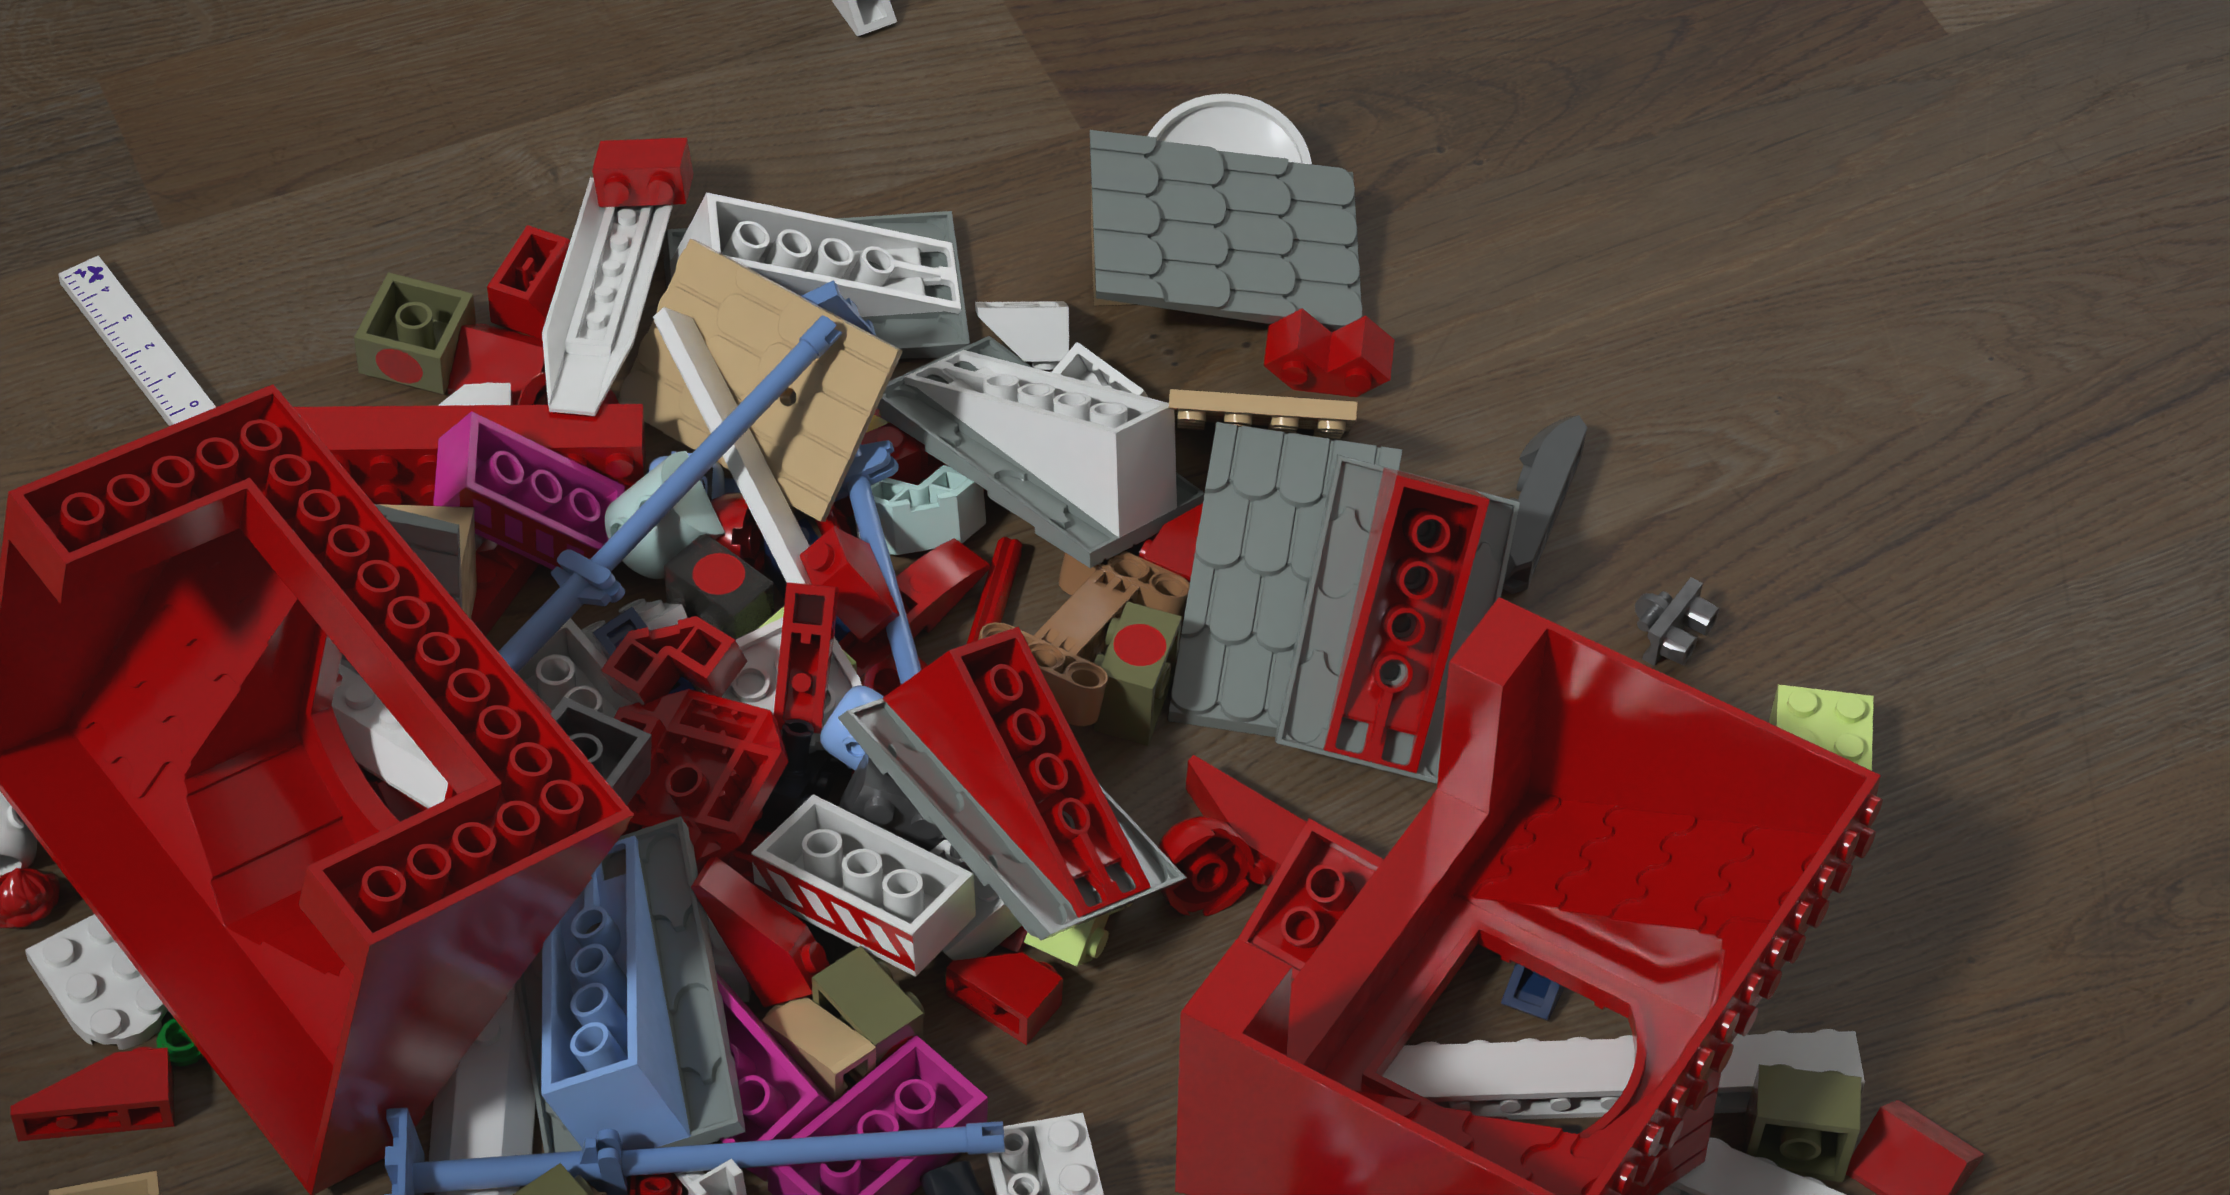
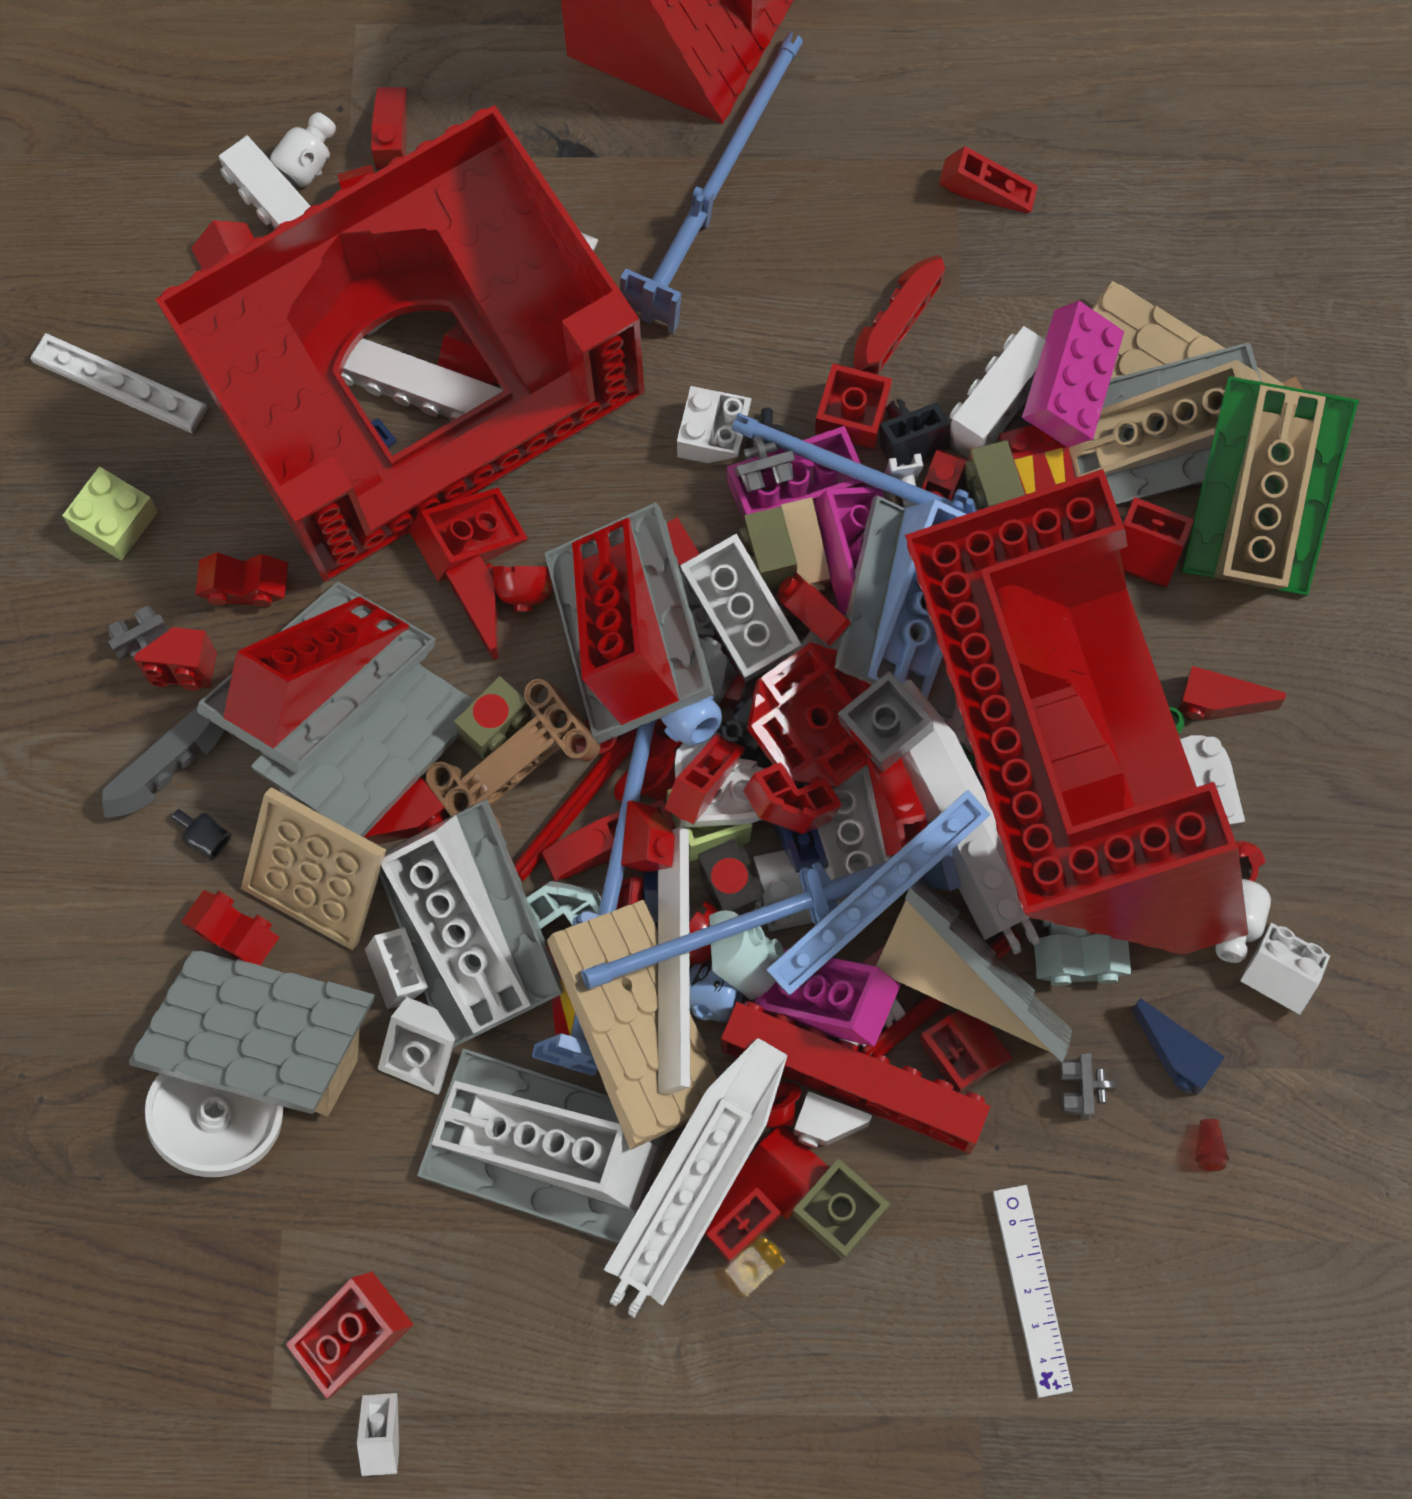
camera: 150 degrees left, 20 degrees up
(485, 261) = (755, 1265): none -> clear yellow bracket
(538, 548) = (878, 892): none -> light blue plate
(643, 172) = (628, 1277): red brick -> none
(930, 1097) = (751, 472): none -> flat silver hips
(938, 58) = (349, 1333): none -> red slope
(1438, 450) = (202, 833): none -> black piece
(1595, 589) = (179, 658): none -> red slope
(1952, 929) = (119, 383): none -> white tile

